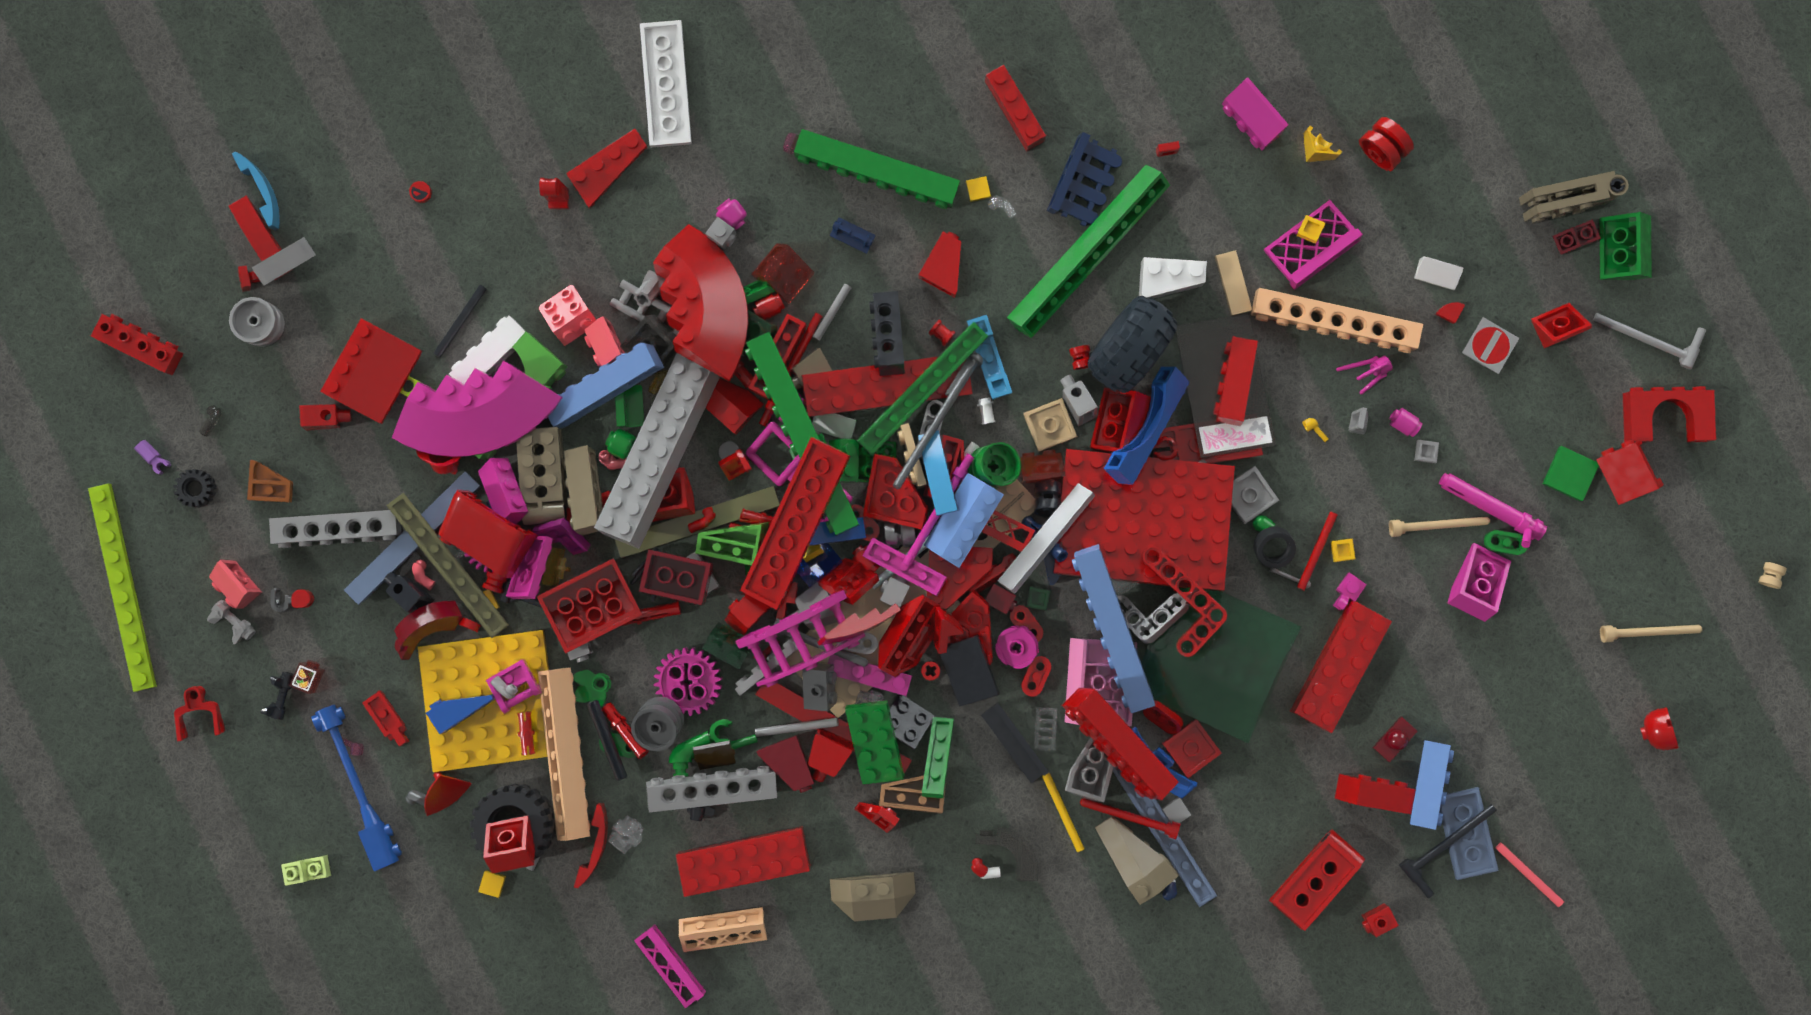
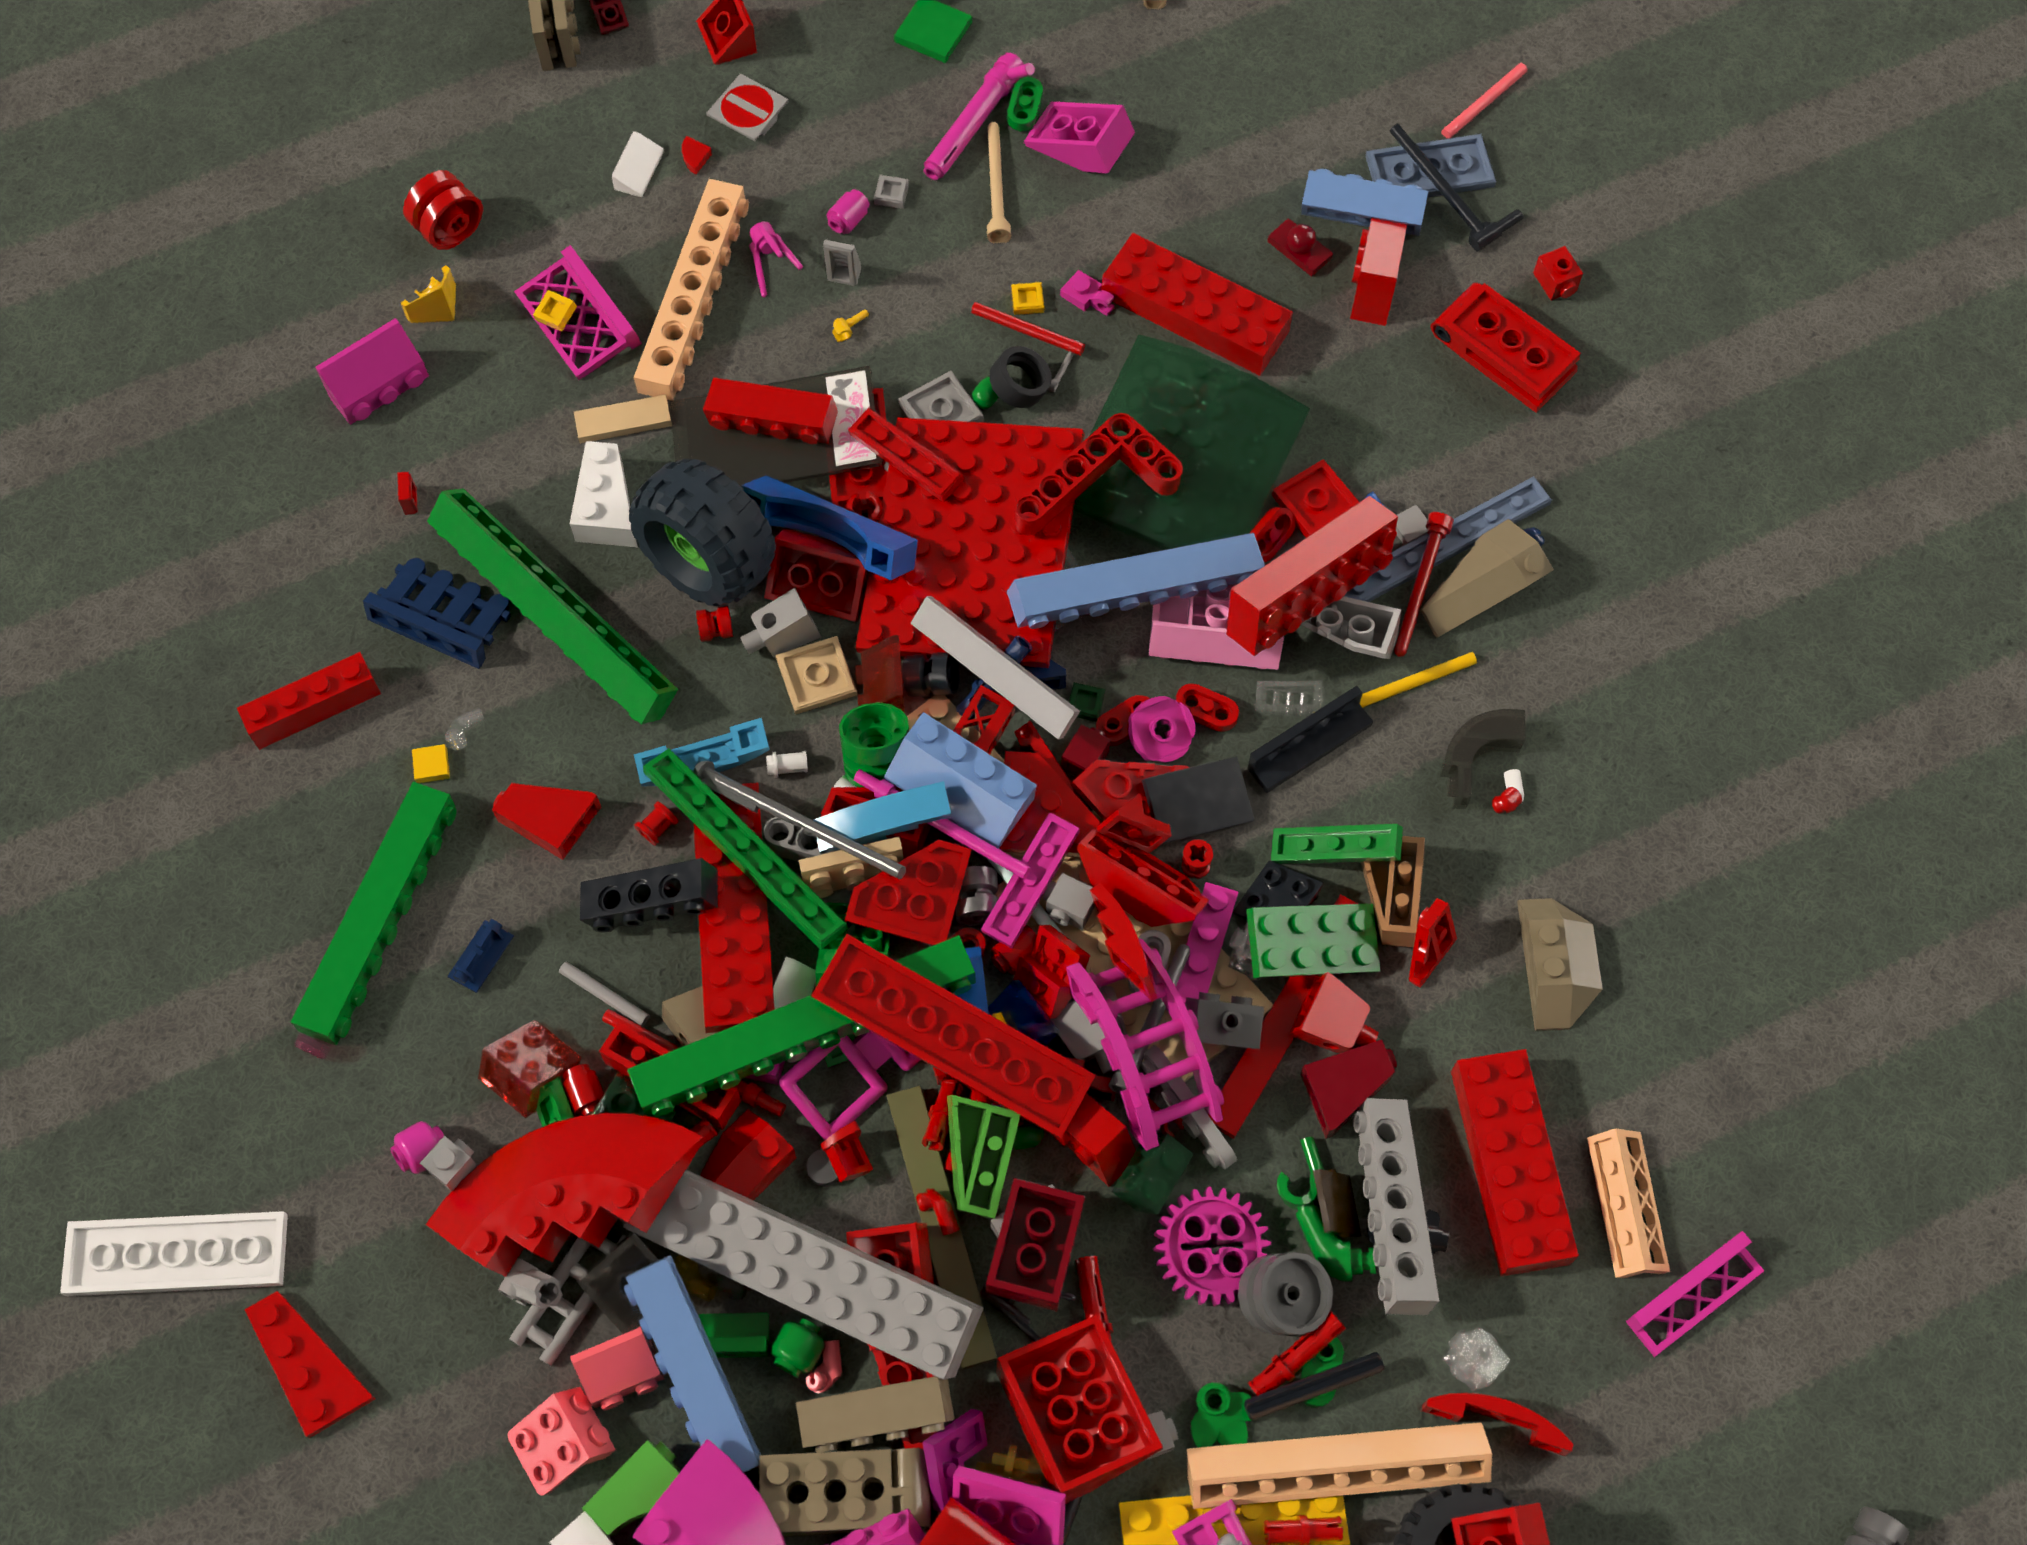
camera: 90 degrees left, 20 degrees down
(555, 193) = (339, 1450): red leg -> none
(817, 724) = (1288, 1070): light grey bar -> none
(1146, 623) = (1130, 541): light grey beam -> none
(1202, 473) = (906, 454): none -> red tile

